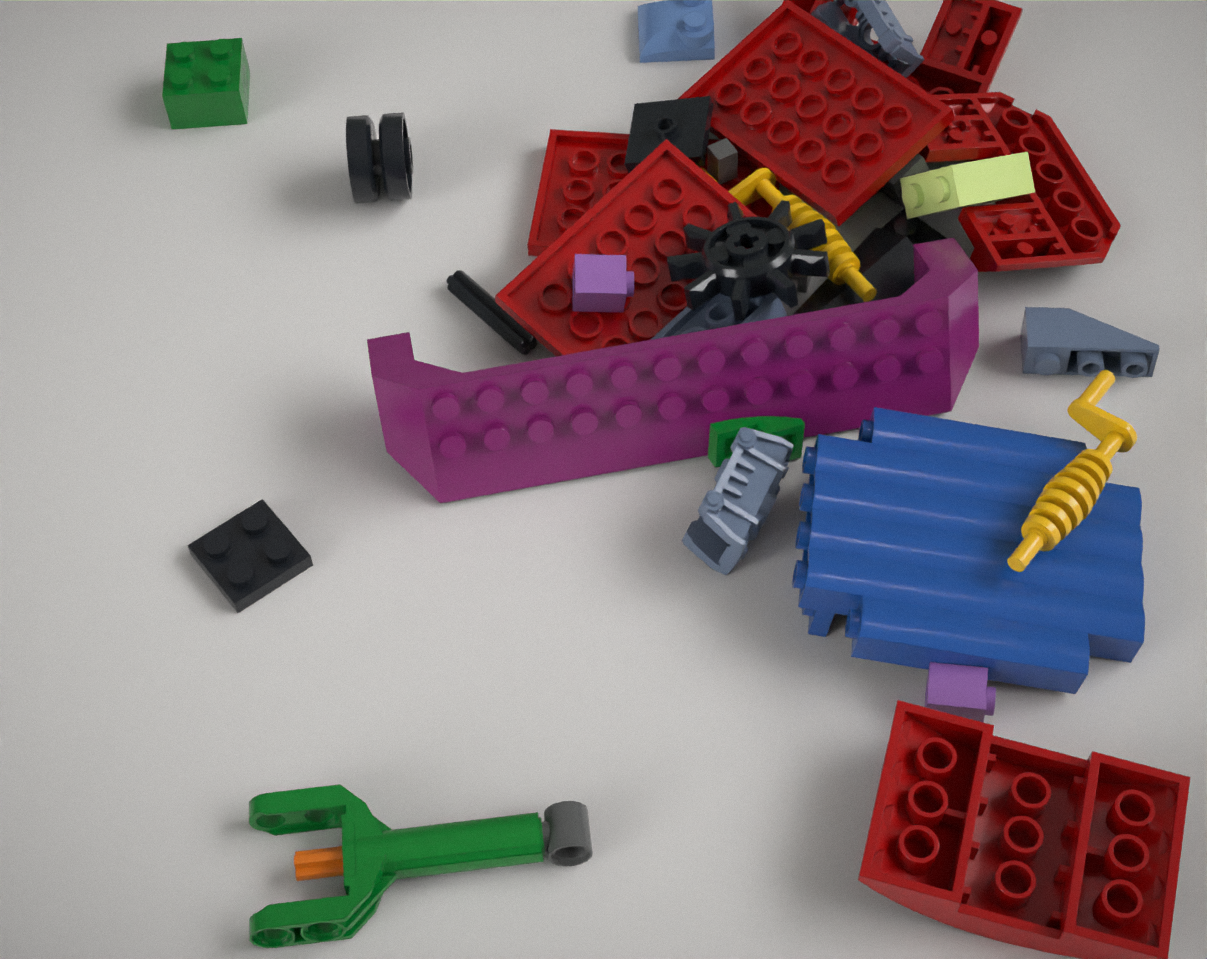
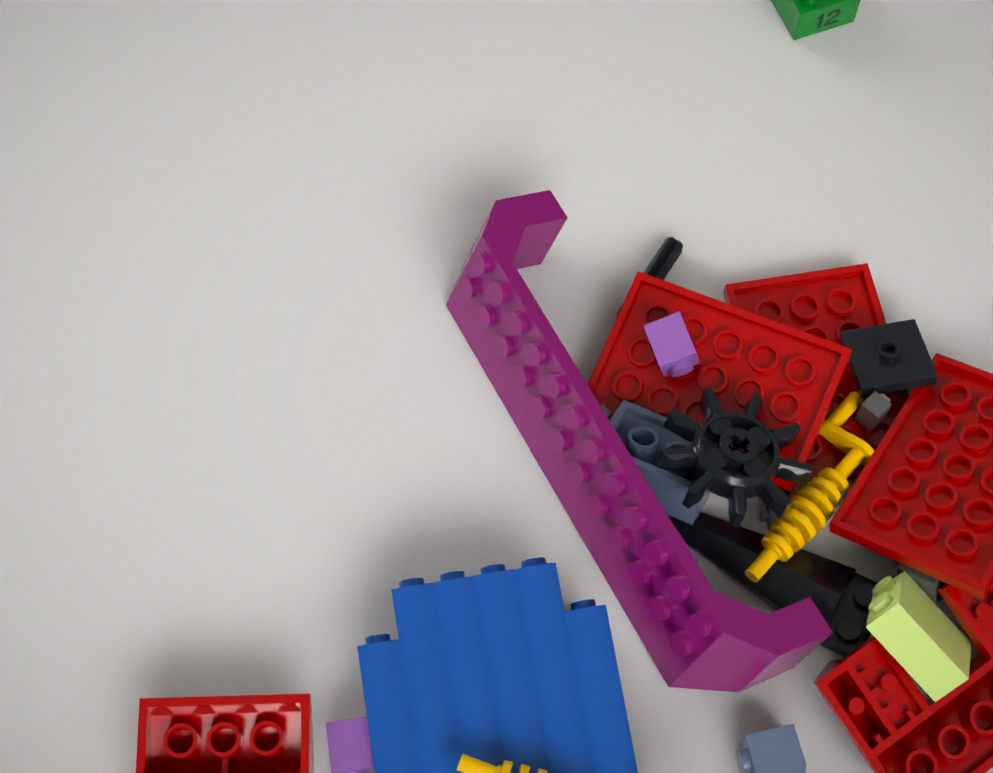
camera: 70 degrees right, 10 degrees up
(250, 555) = (359, 191): black plate -> none
(376, 158) = (768, 140): black wheel -> none
(377, 856) = (115, 357): green piece -> none
(724, 433) = (576, 534): green slope -> none
(739, 500) = (496, 523): sand blue piece -> none

